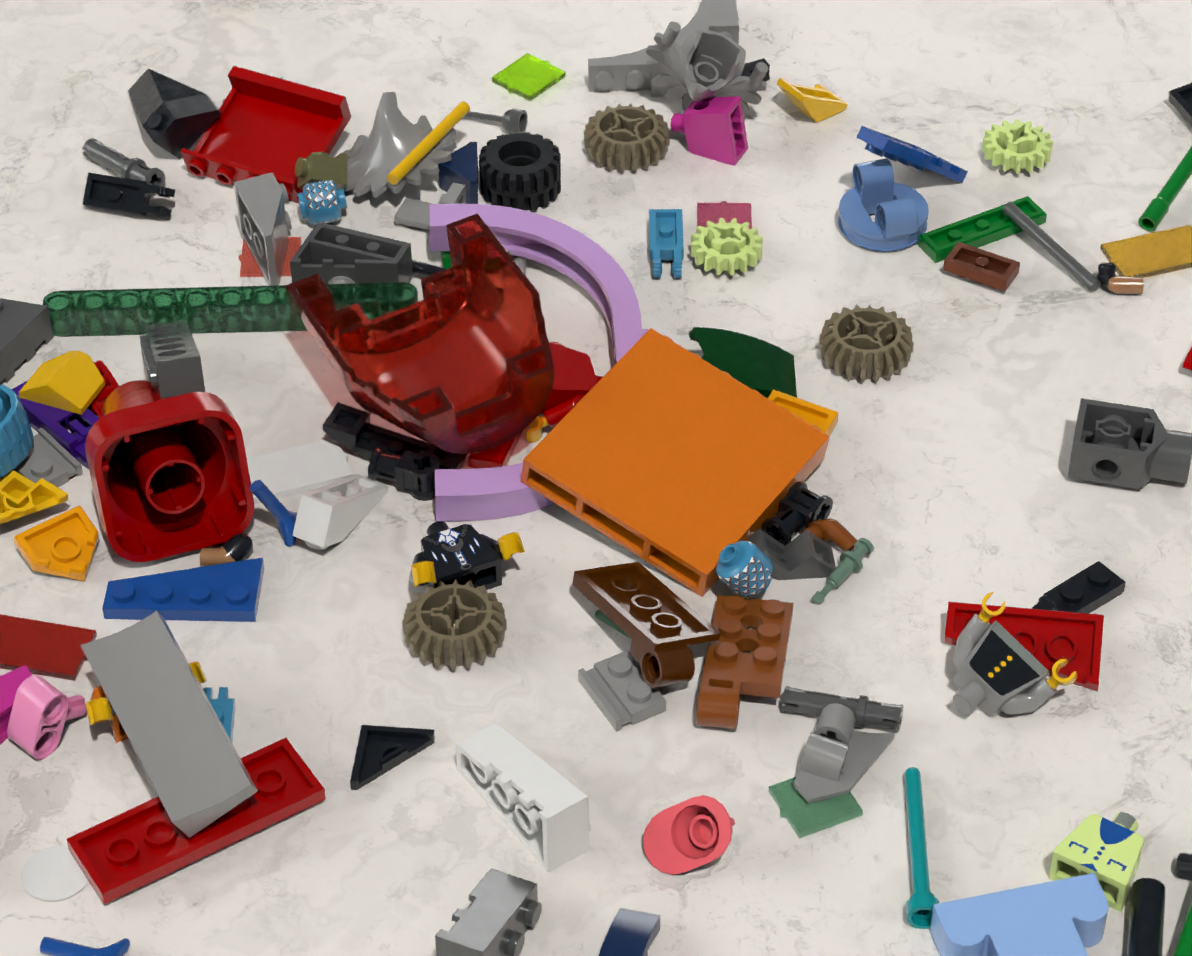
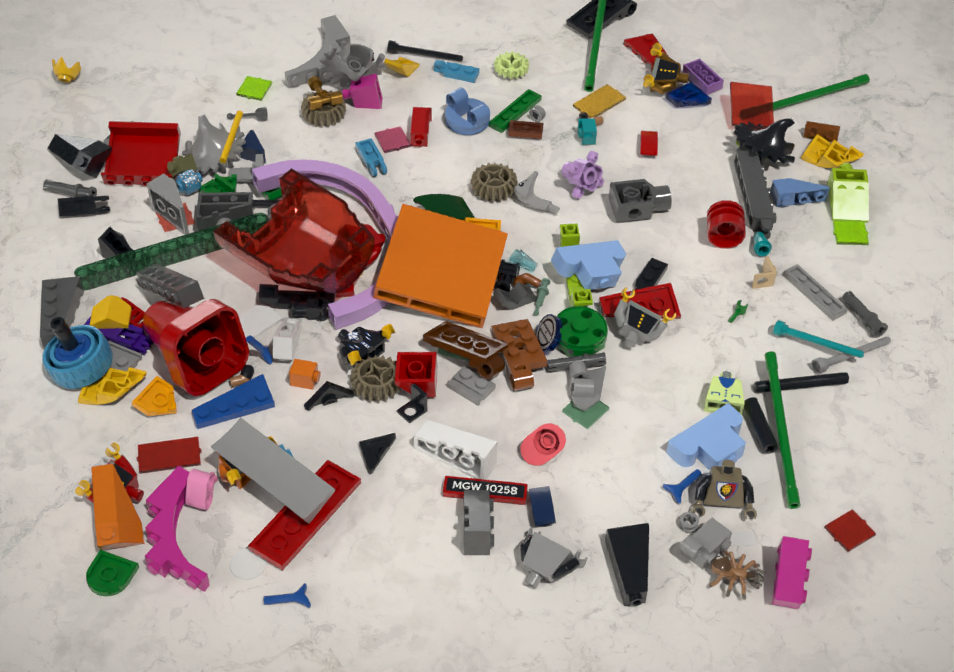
camera: 25 degrees left, 5 degrees up
(139, 267) = (113, 243): none -> black slope
(330, 578) = (304, 374): none -> orange brick
(354, 626) = (328, 394): none -> black tile
(375, 220) = (220, 184): none -> green slope
(503, 692) = (418, 402): none -> black bracket
(520, 171) = (281, 139): black tyre -> none
(527, 637) = (418, 369): none -> red slope
(557, 890) = (498, 490): none -> tile
(626, 113) = (322, 96): none -> pearl gold bar
(726, 246) = (402, 151): yellowish green gear -> none
(744, 569) = (501, 309): dark azure head -> none
(784, 209) = (420, 126): none -> red window
(808, 640) = (549, 332): none -> tile
(814, 64) = (395, 47): none -> black piece
(844, 496) = (525, 261): none -> clear light blue cone
(878, 653) = (582, 331): none -> green piece
(908, 154) = (465, 82): blue wing -> none
(910, 130) = (457, 71): none -> dark azure hinge
(914, 377) = (525, 193): none -> light grey animal
(921, 902) = (659, 441): teal piece -> none
(936, 532) = (577, 294): none -> lime slope
(966, 537) = (593, 263): none -> light blue brick
(1019, 243) = (537, 113): none -> light grey bush
(1042, 372) = (583, 174): none -> lavender piece
(1051, 246) = (551, 110): dark grey bar -> none
(1098, 298) = (587, 131): none -> teal brick

